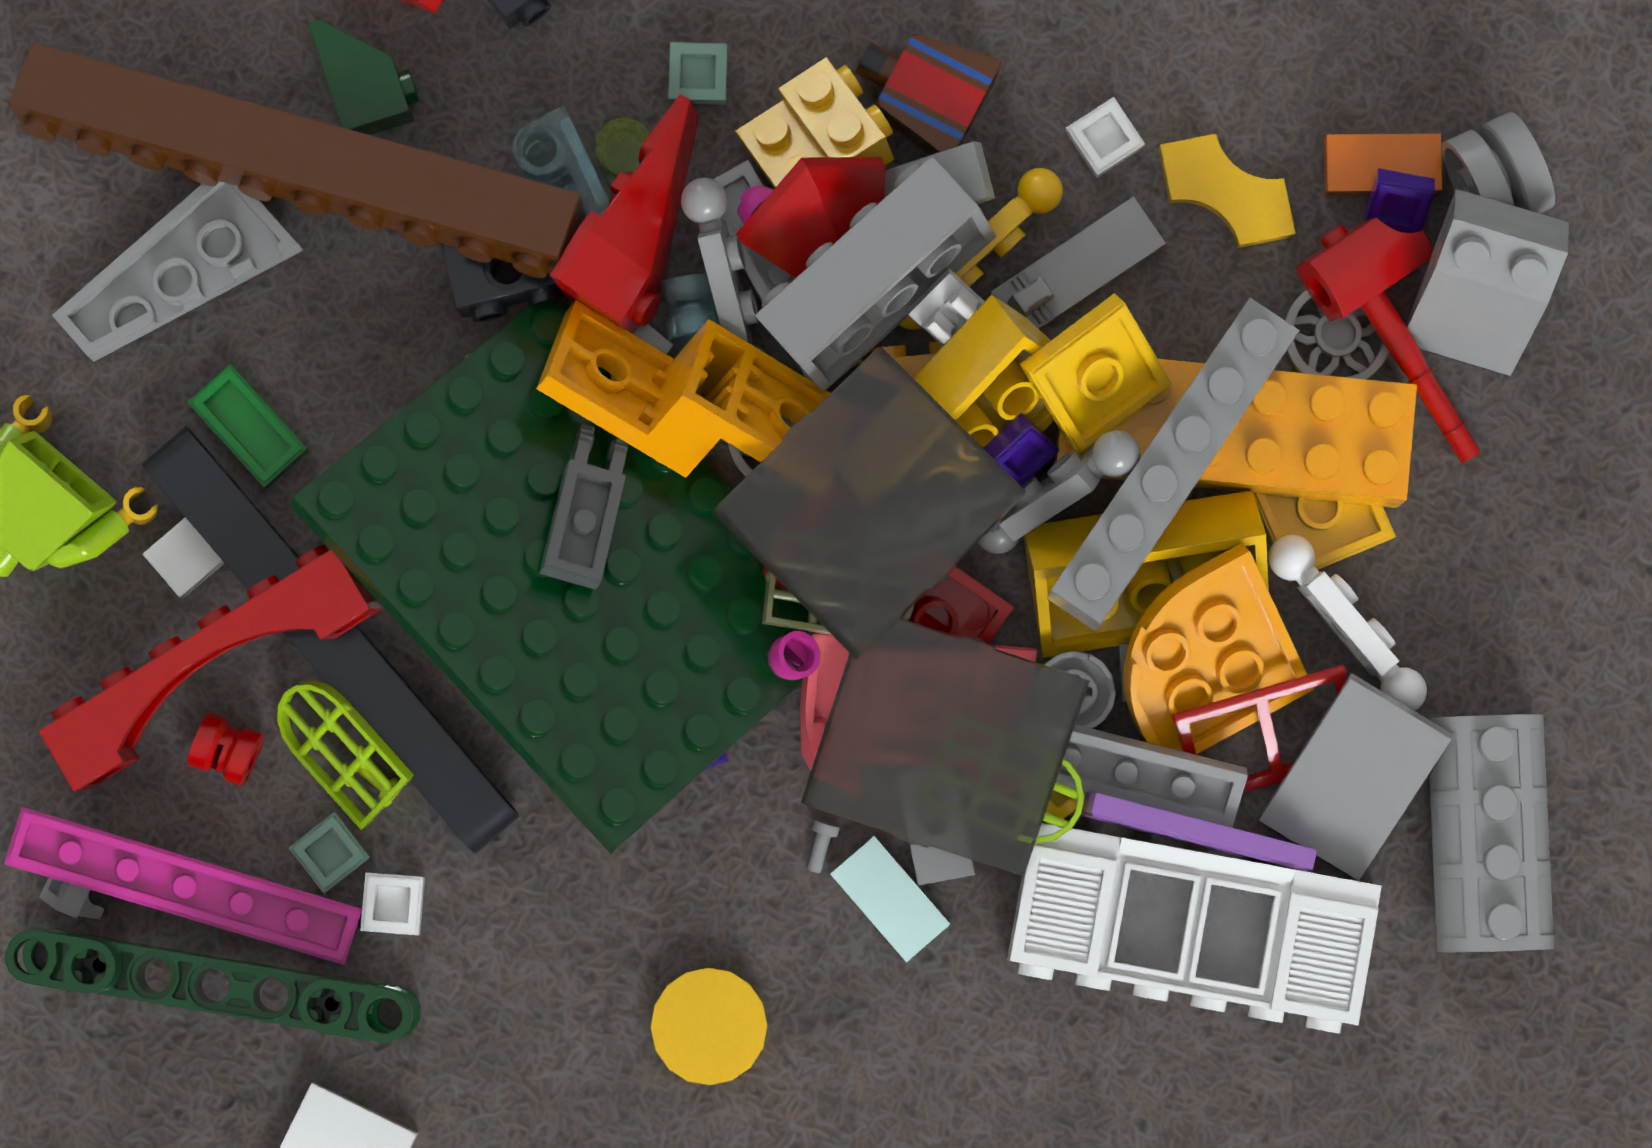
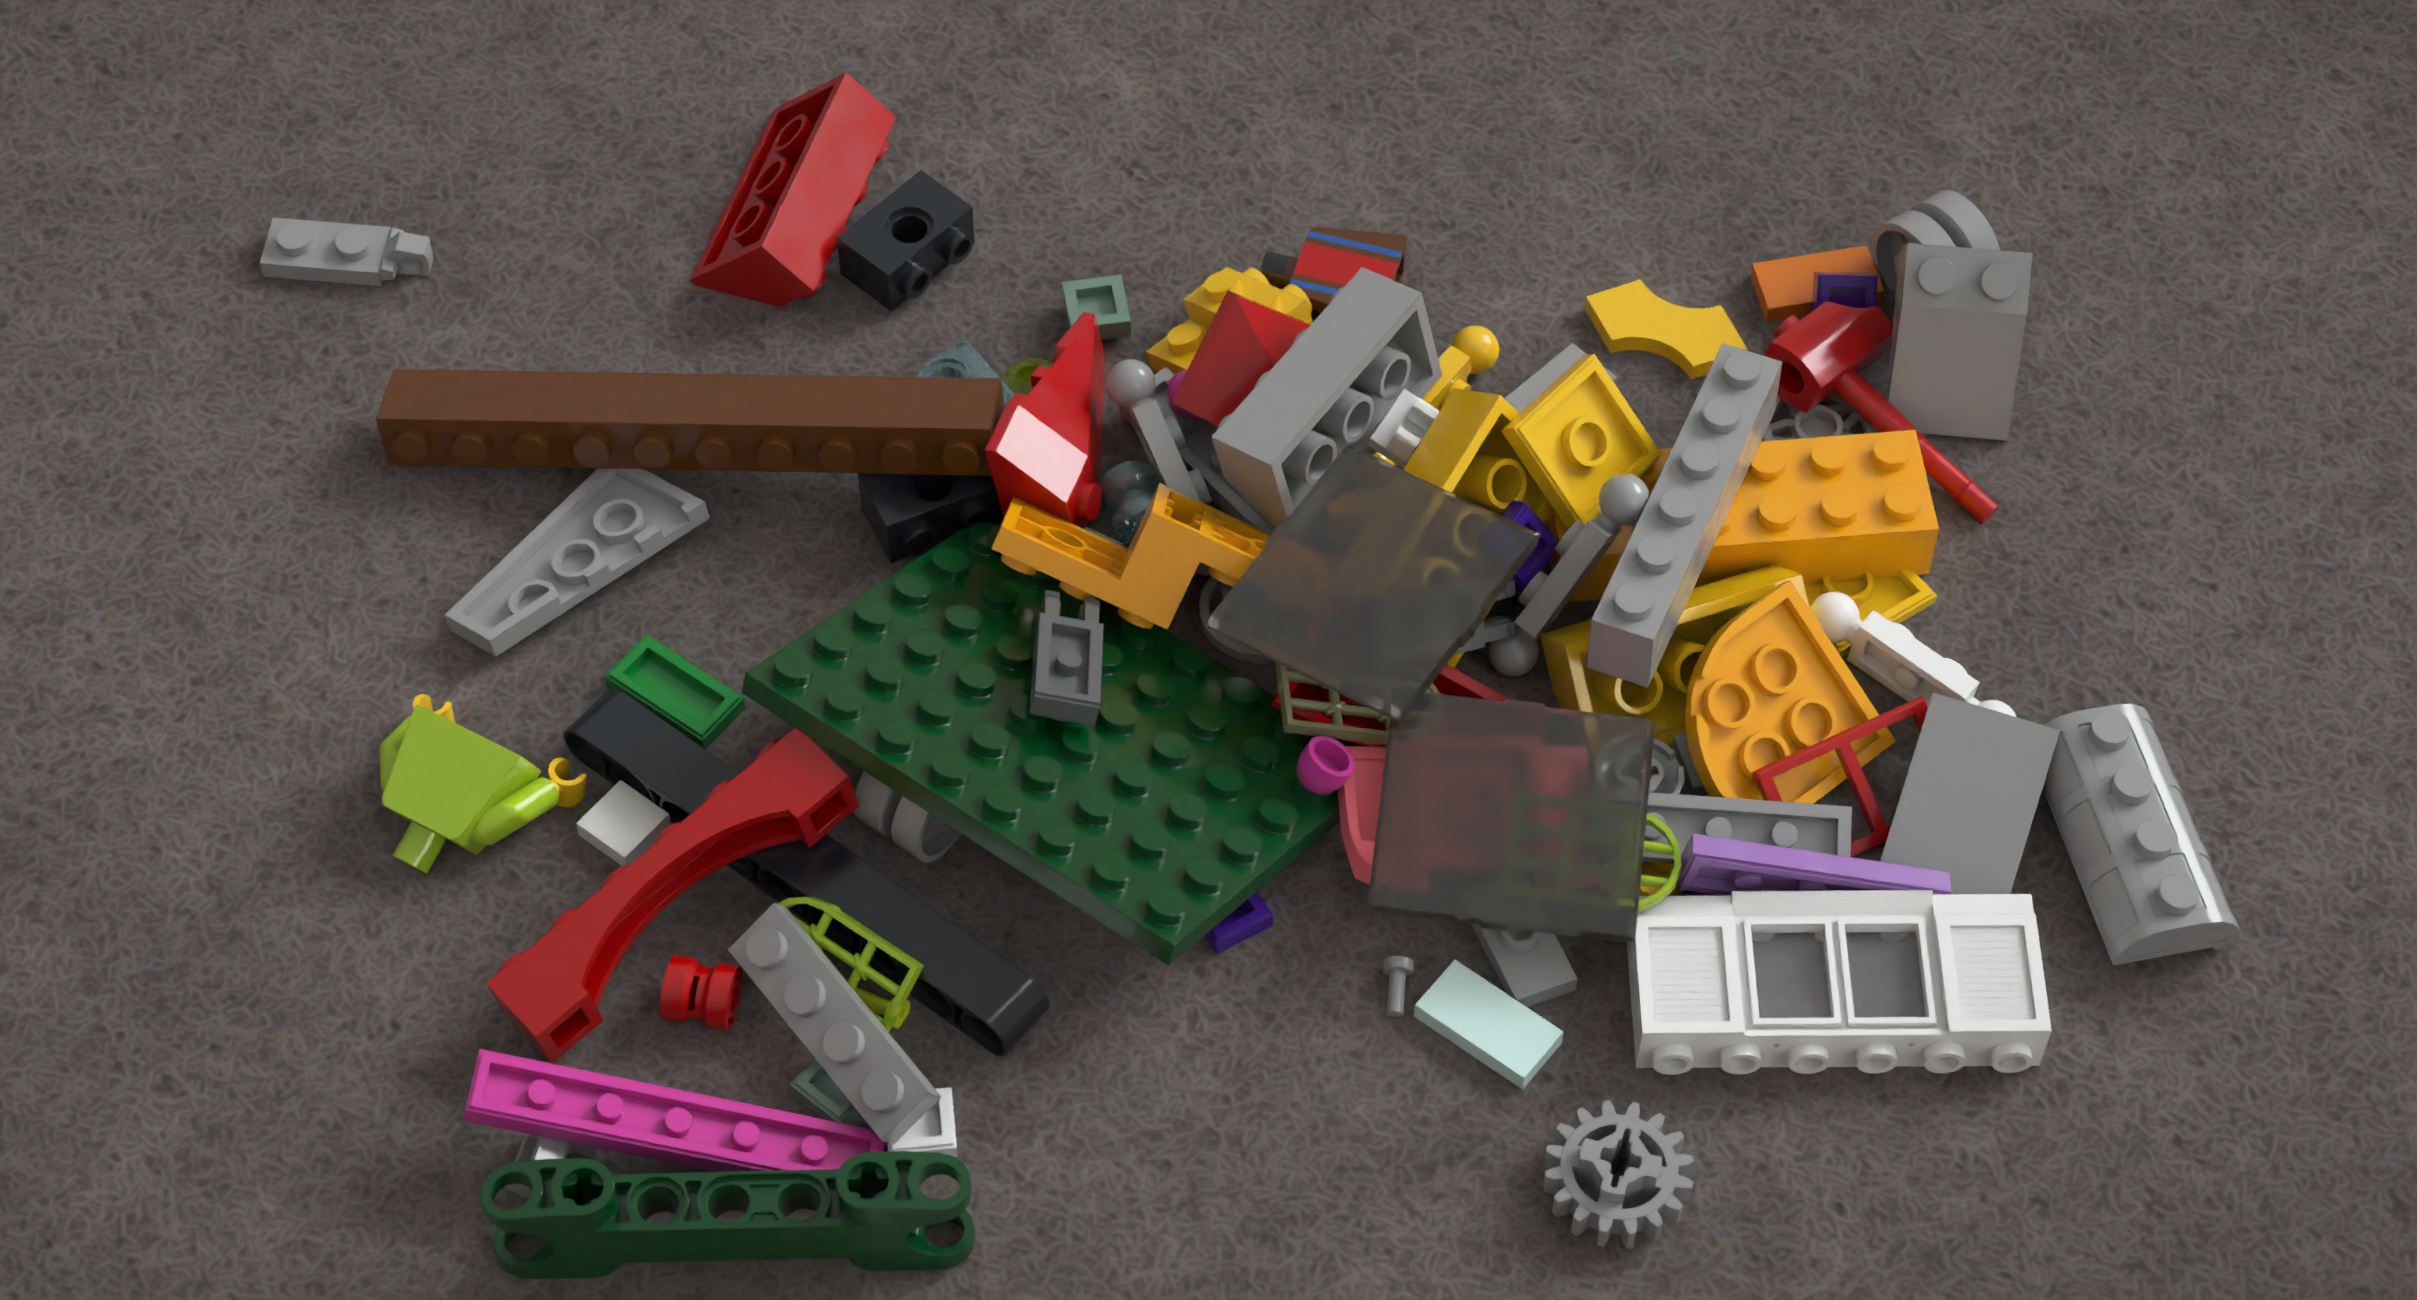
camera: 10 degrees left, 30 degrees down
(330, 810) = (834, 1024): none -> light grey plate
(363, 82) = (740, 345): dark green slope -> none
(709, 1026) = (1314, 1187): yellow tile -> none
(985, 1083) = (1652, 1181): none -> light grey gear
(1105, 137) = (1528, 305): white tile -> none

